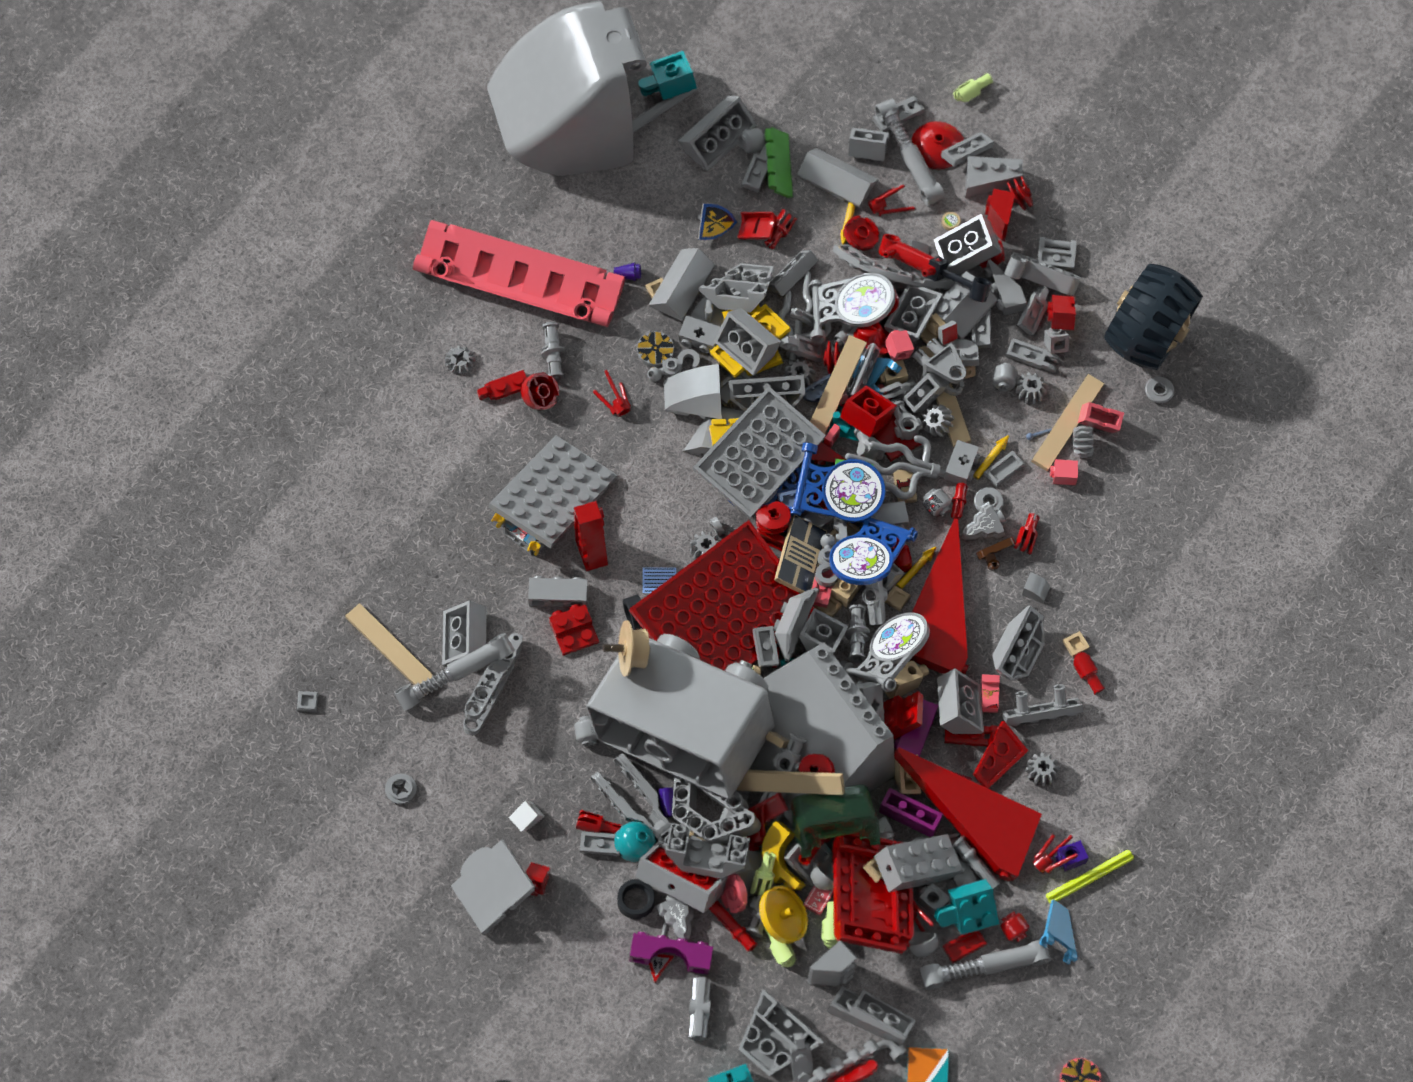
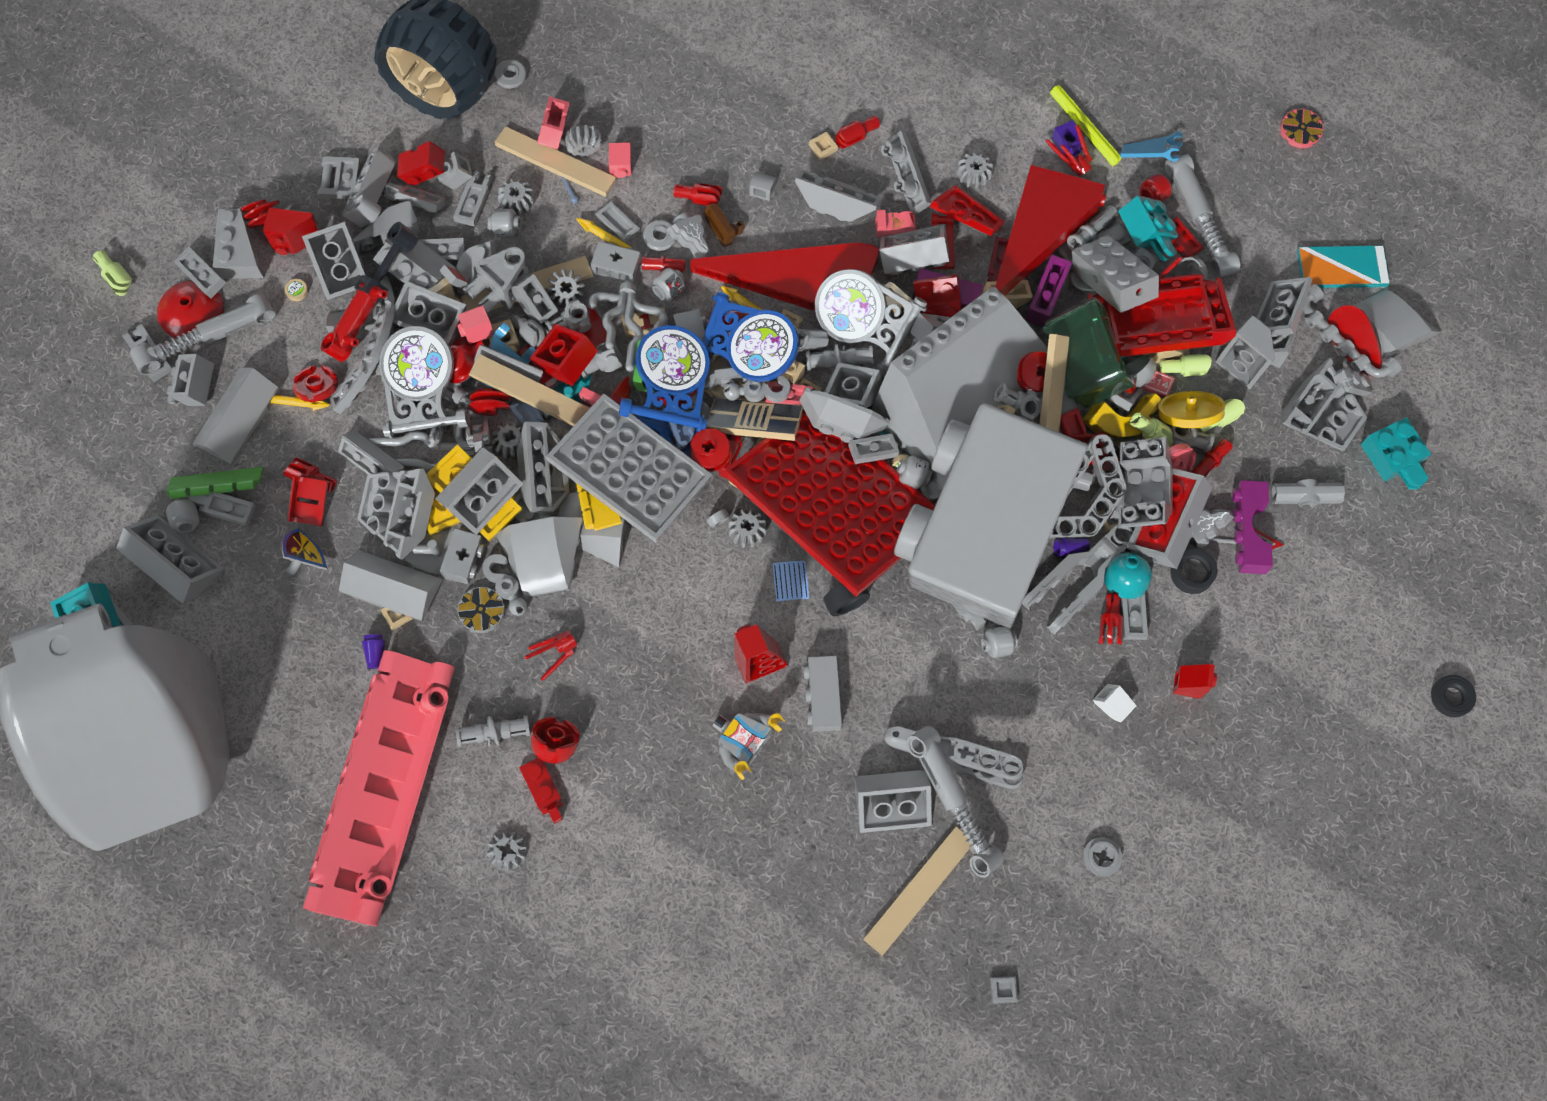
camera: 95 degrees left, 5 degrees up
(491, 885) = (1216, 728): light grey piece -> none
(549, 488) = (693, 710): light grey plate -> none
(573, 629) = (868, 672): red plate -> none
(632, 648) = (950, 560): tan piece -> none
(873, 870) = (1130, 316): tan tile -> none
(878, 204) = (274, 368): red plant -> none

